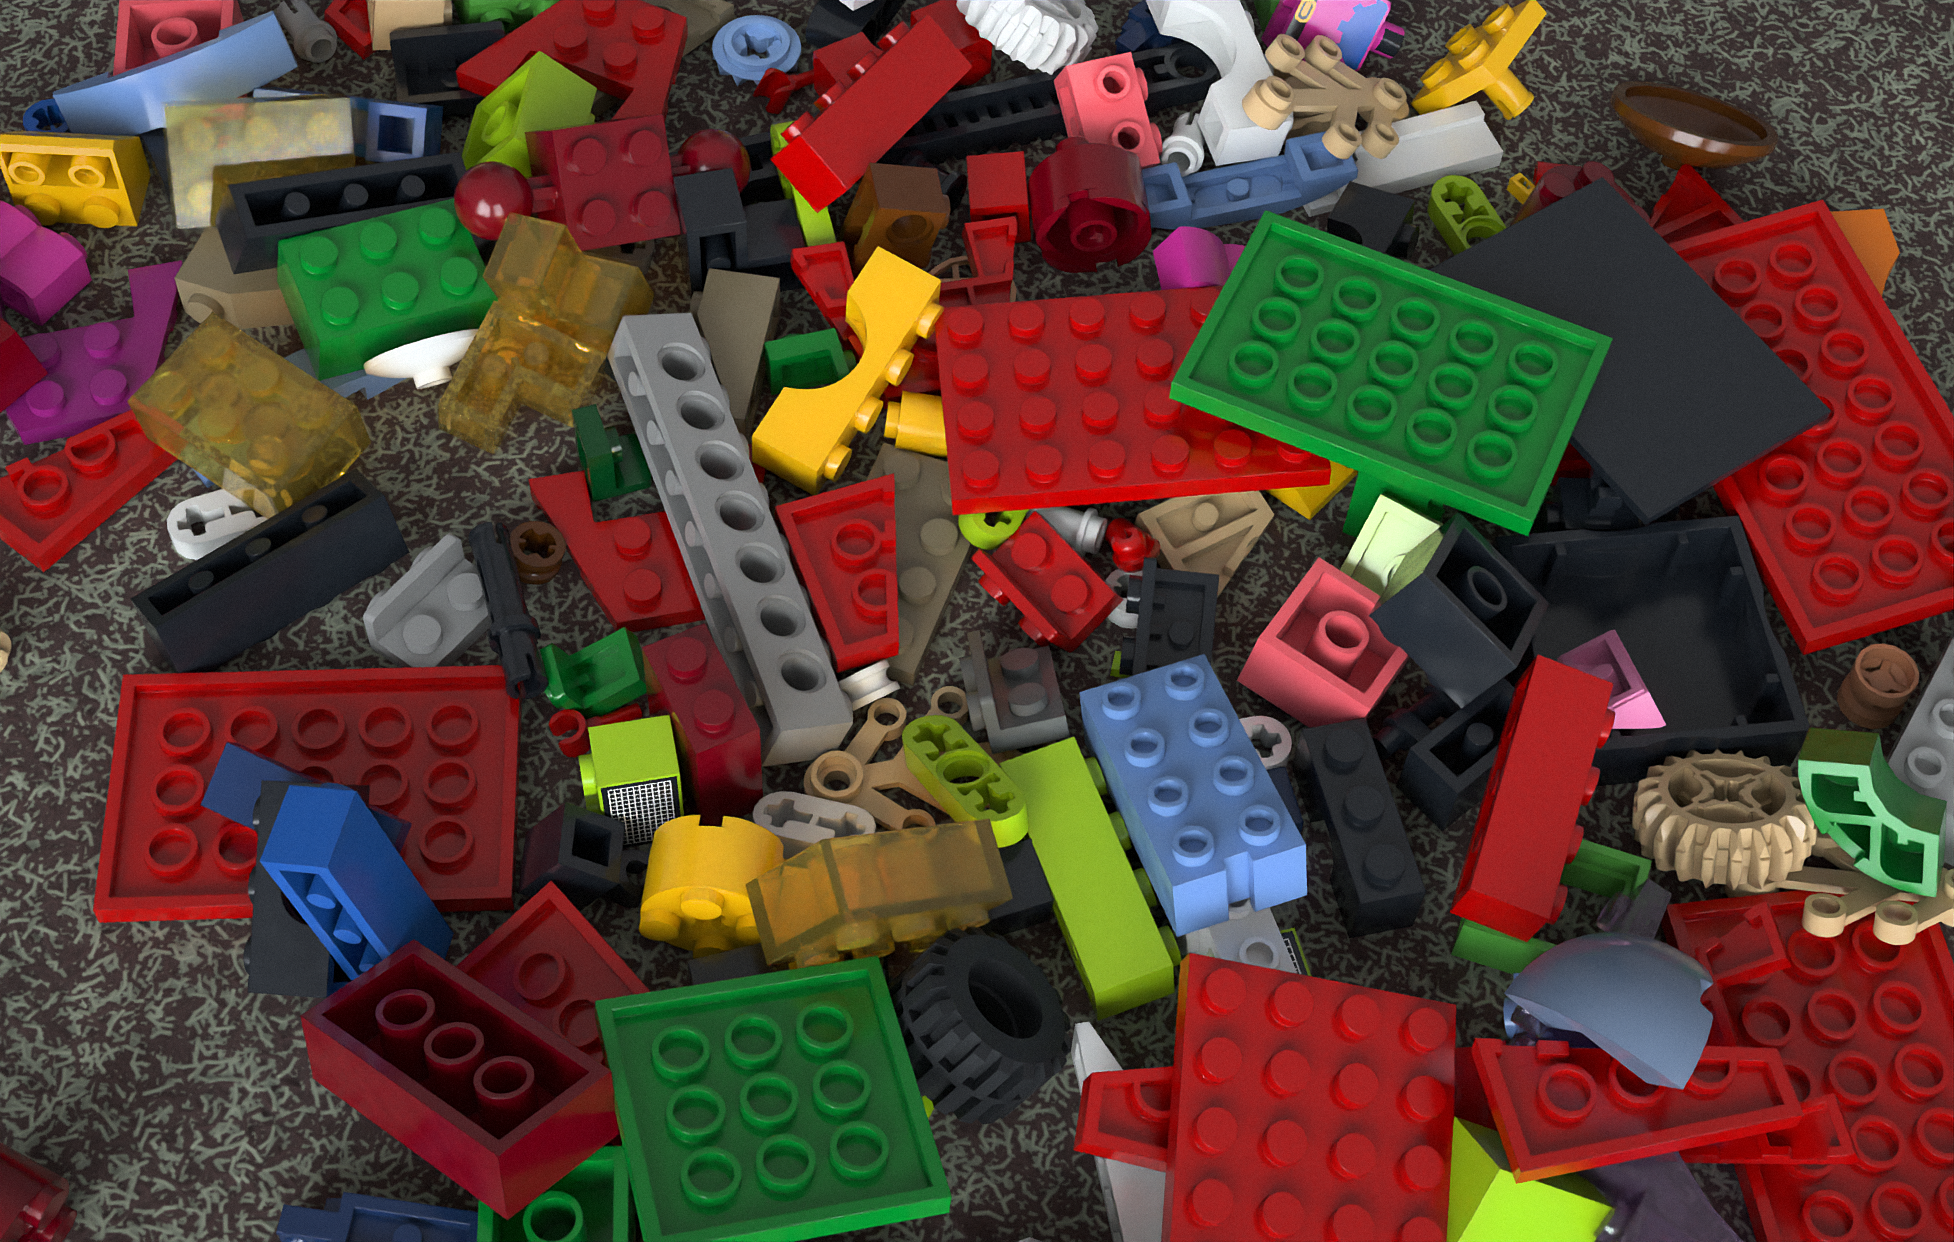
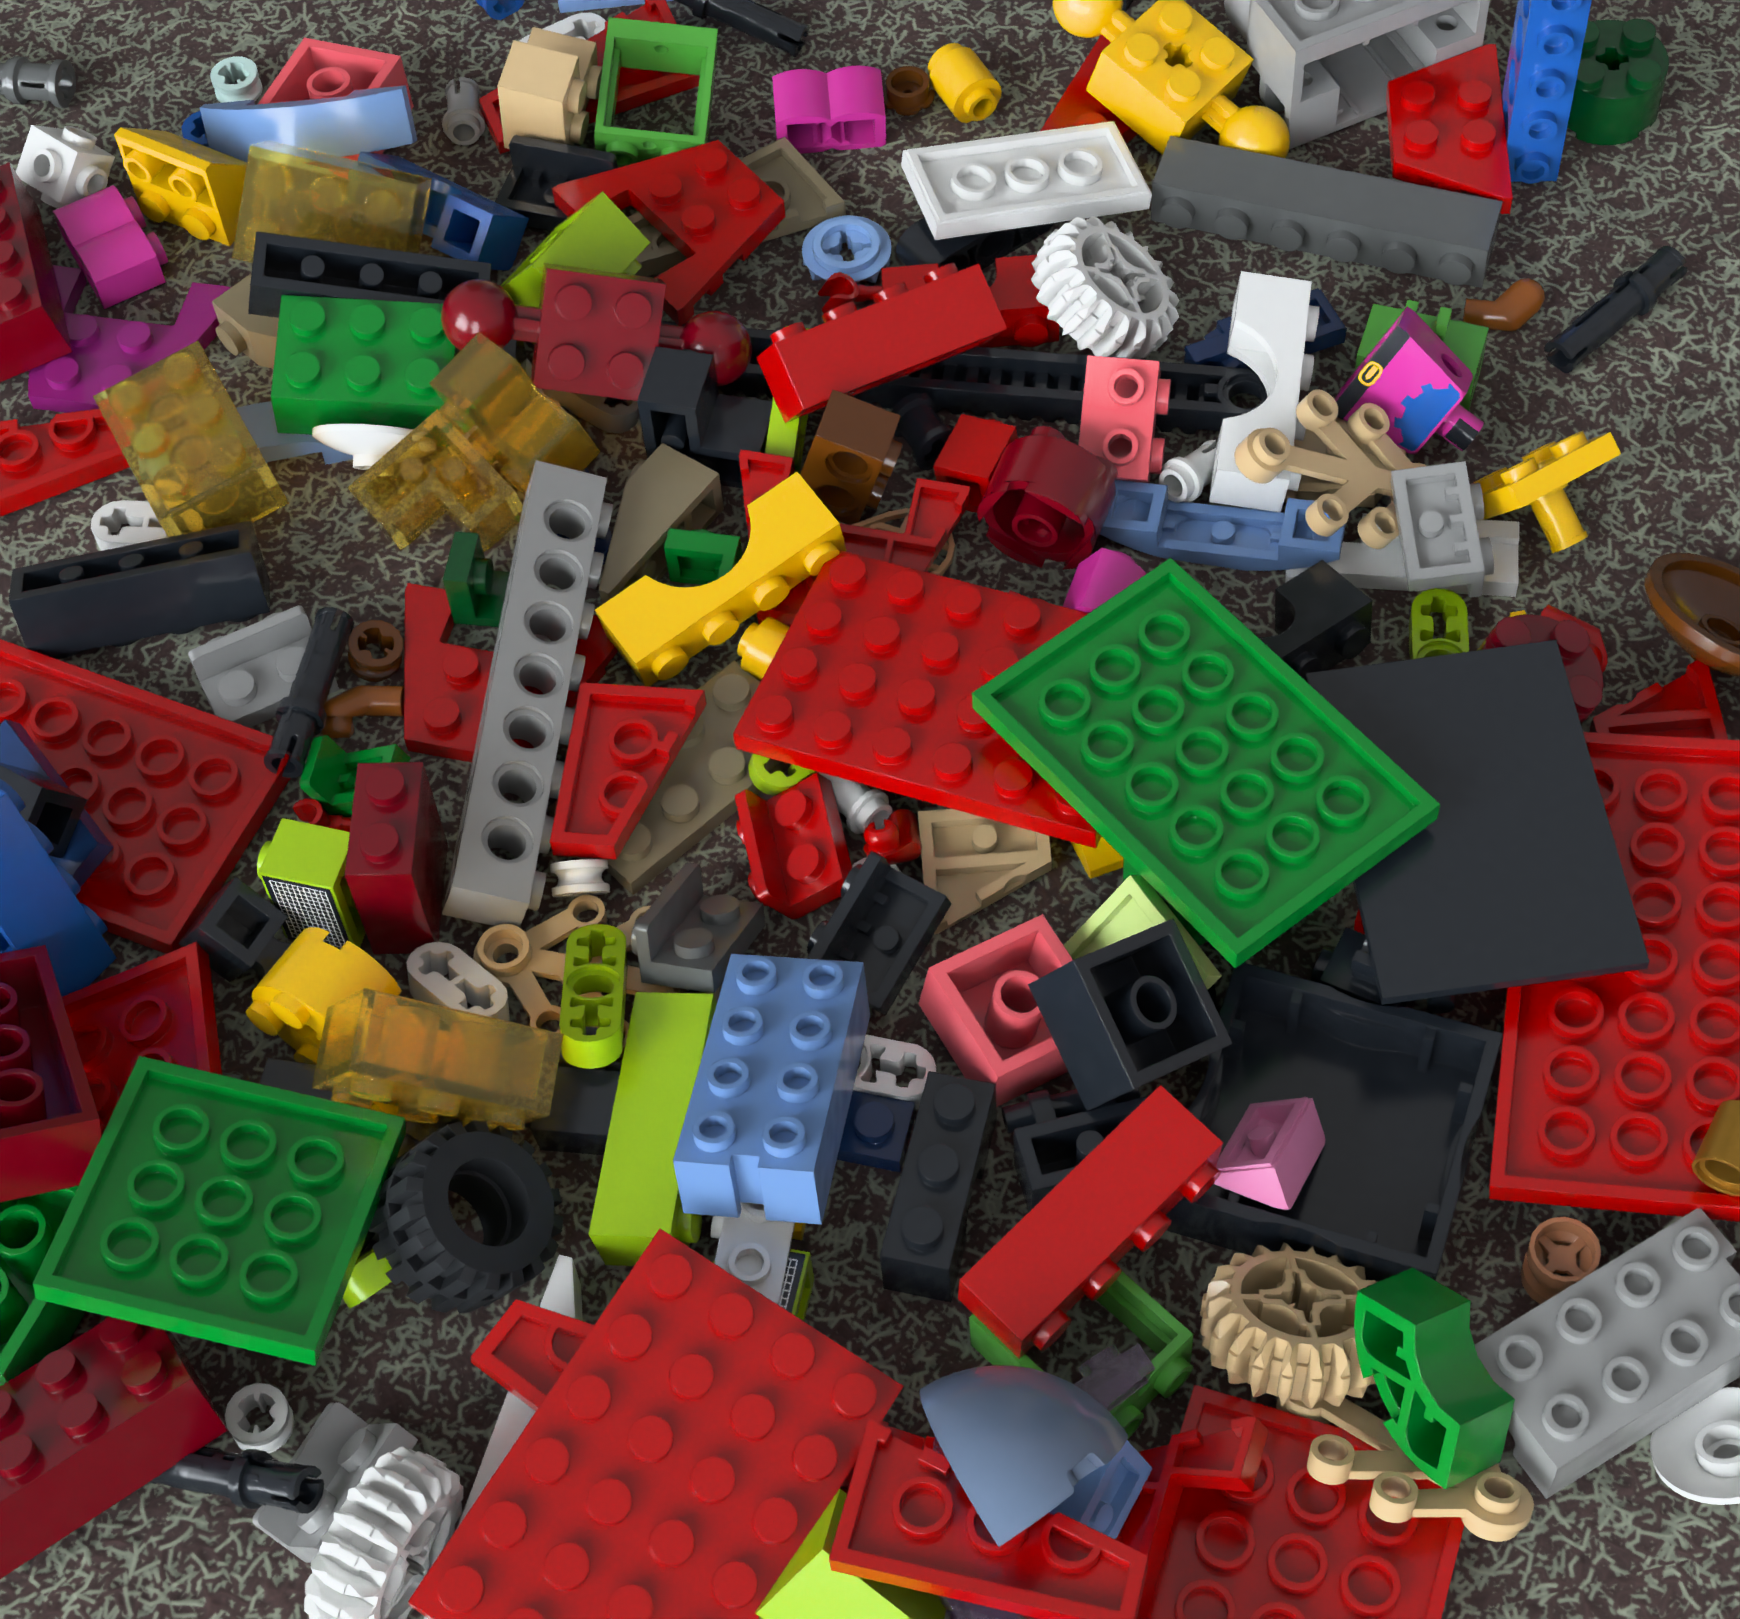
camera: 35 degrees right, 0 degrees up
(45, 54) = (236, 69): none -> light aqua bush
(558, 601) = (361, 701): none -> dark orange arm
(1433, 121) = (1439, 527): none -> light grey bracket

